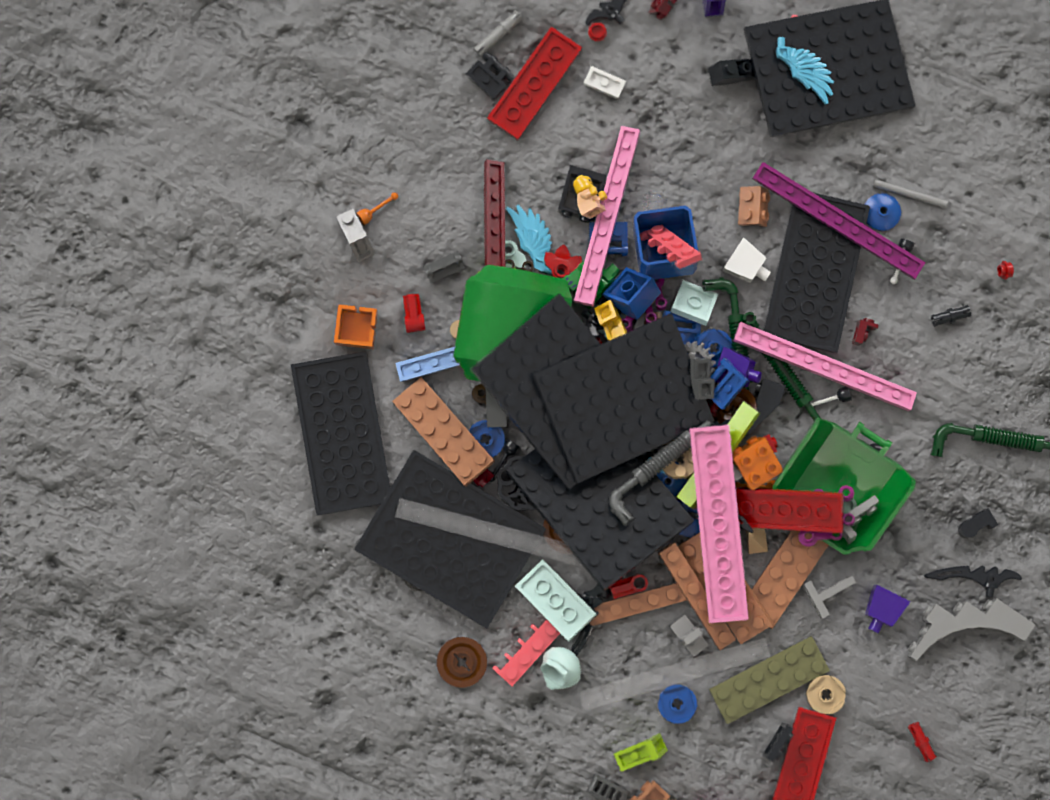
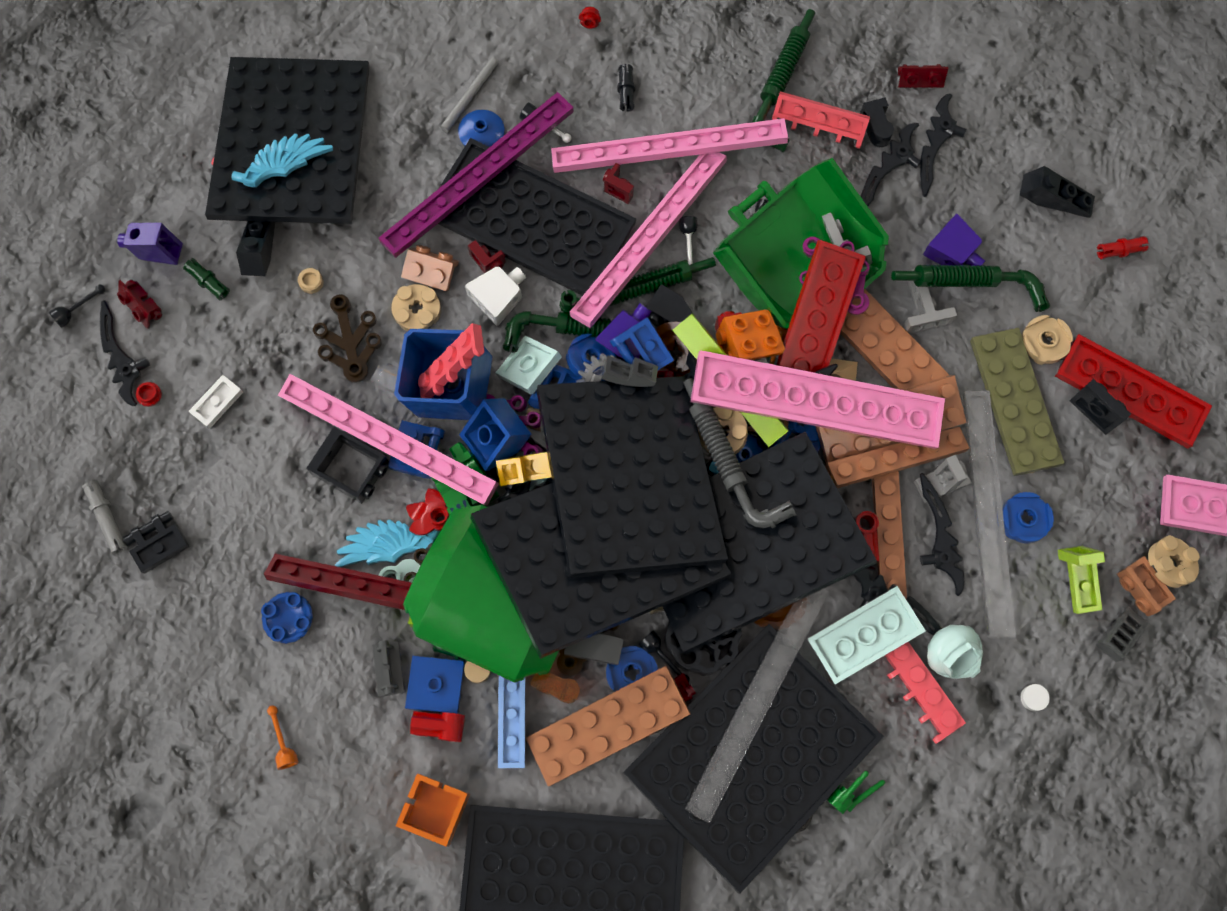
camera: 75 degrees left, 10 degrees down
(355, 235) = (308, 777): light grey bracket -> none
(436, 608) = (843, 798): none -> green plant
(441, 303) = (435, 684): none -> blue plate
(461, 185) = (286, 617): none -> blue dish
(461, 388) = (562, 689): none -> clear orange leg
(461, 676) = (937, 789): reddish brown gear -> none
(534, 83) = (186, 488): red plate -> none
(544, 734) = (1034, 697): none -> white tile
(587, 197) = (358, 455): piece -> none
(631, 647) = (942, 554): none -> black piece
(678, 164) = (348, 342): none -> dark brown plant
(697, 43) = (206, 279): none -> dark green pin
(712, 214) = (411, 295): none -> tan plate
(718, 120) = (310, 280): none -> tan tile
(774, 243) = (483, 258): none -> dark red bracket
(860, 626) = (974, 277): none -> dark green piece
(906, 363) = (669, 145): none -> bright pink plate
(941, 623) = (984, 162): light grey arch -> none
(954, 681) = (1055, 192): none -> black slope
(956, 549) = (900, 154): none -> black piece
(967, 477) = (821, 117): none -> coral hinge
(1033, 560) = (922, 77): none -> dark red hinge

